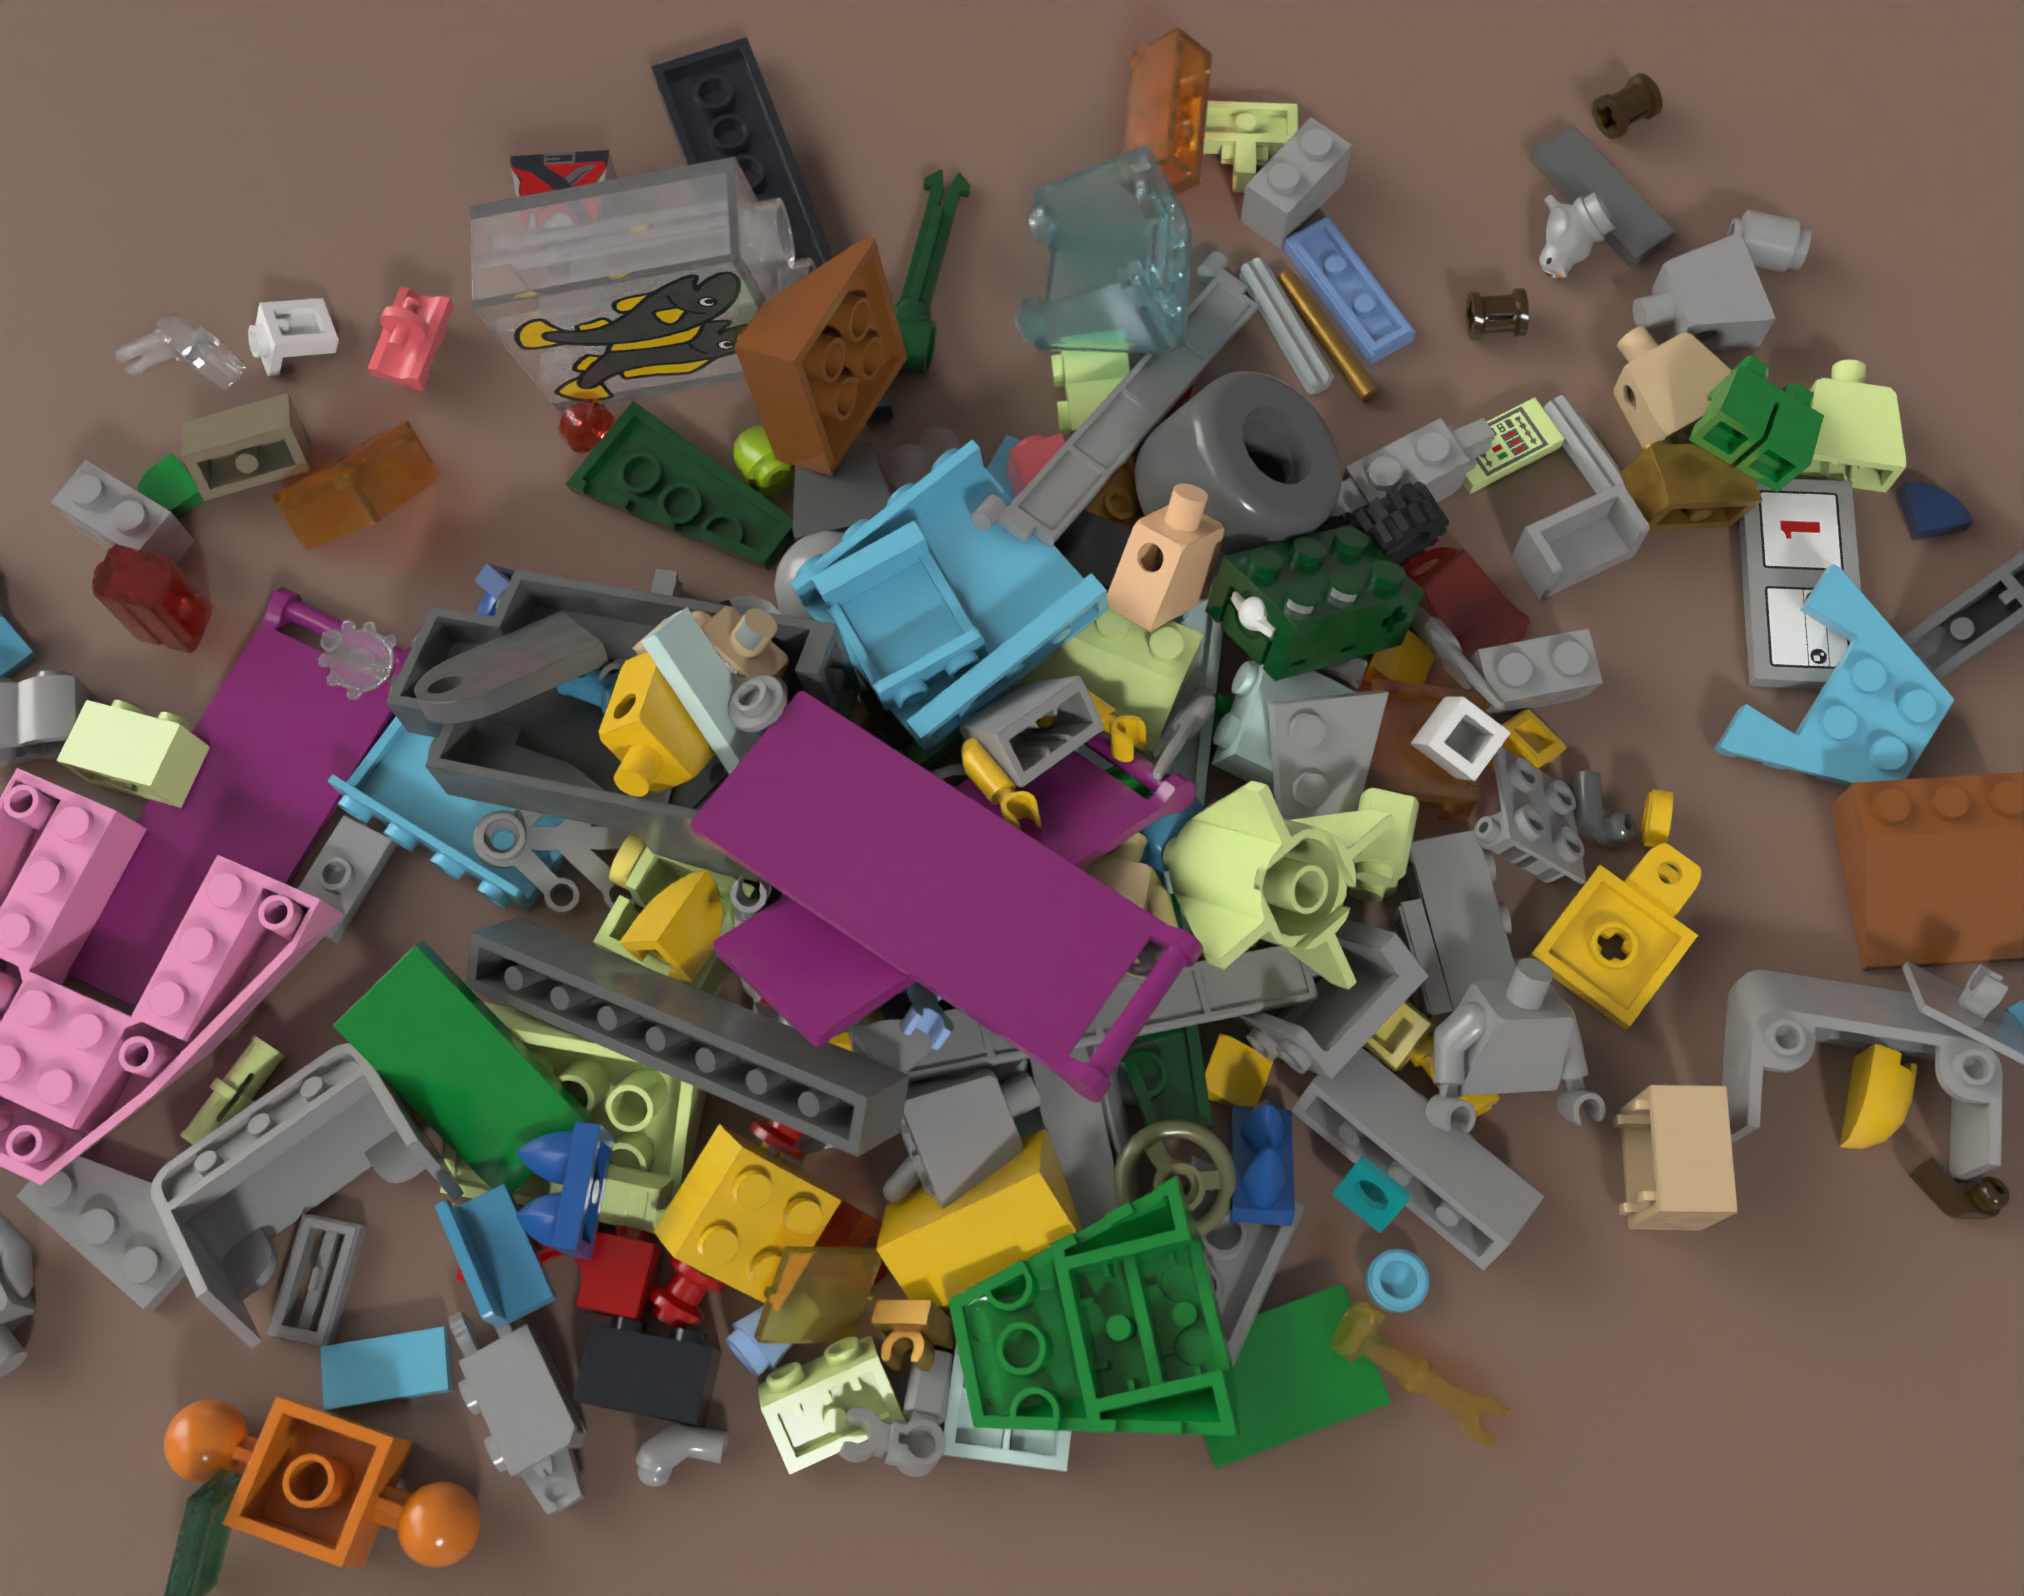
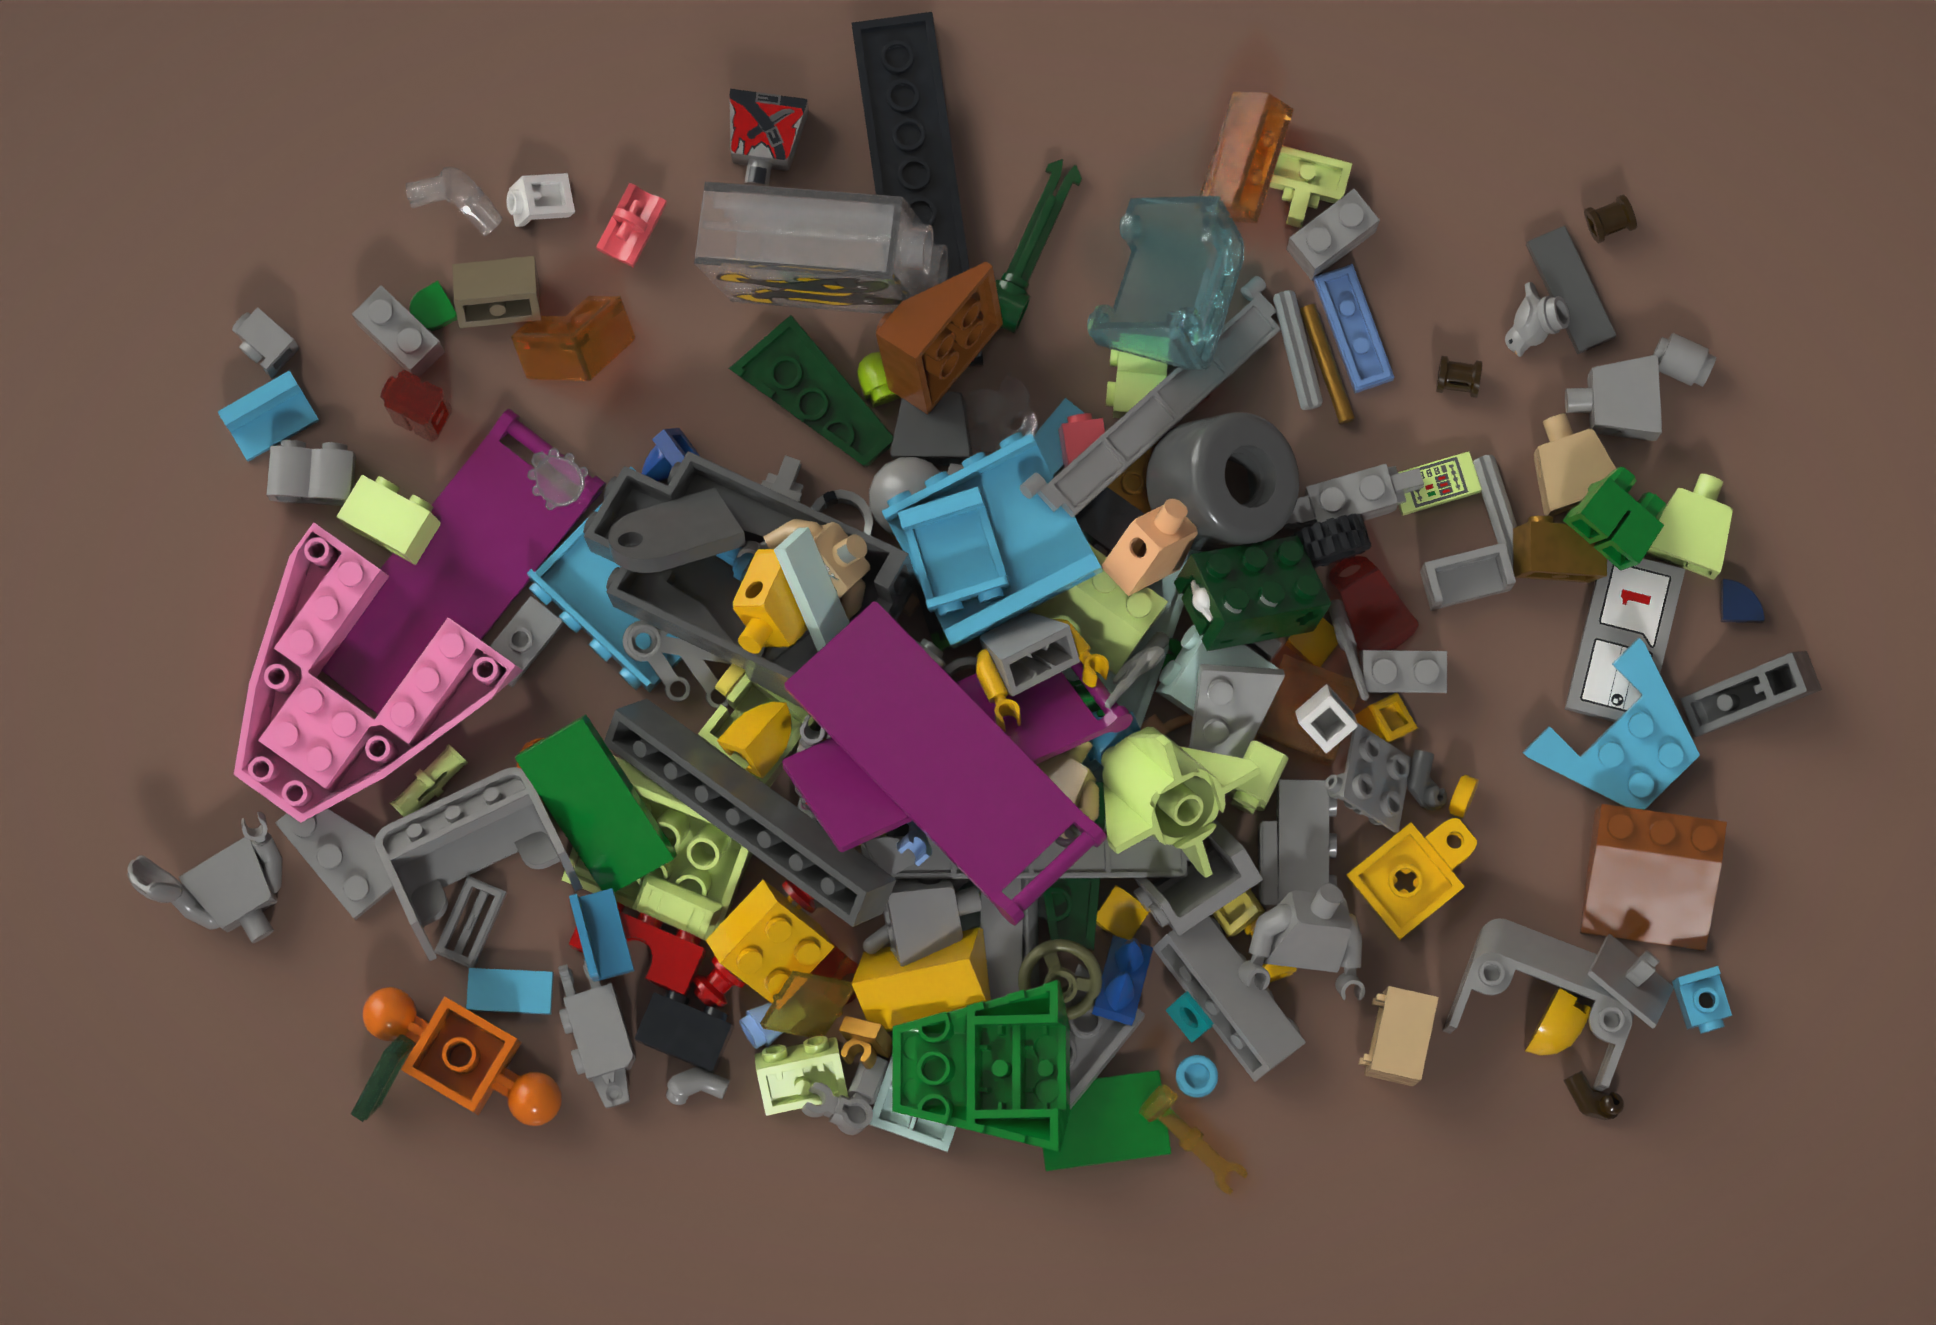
camera: 10 degrees right, 10 degrees up
(581, 1165) = (664, 884): blue tile -> none
(585, 425) = (751, 324): clear red tile -> none
(757, 704) = (843, 604): light grey plate -> none

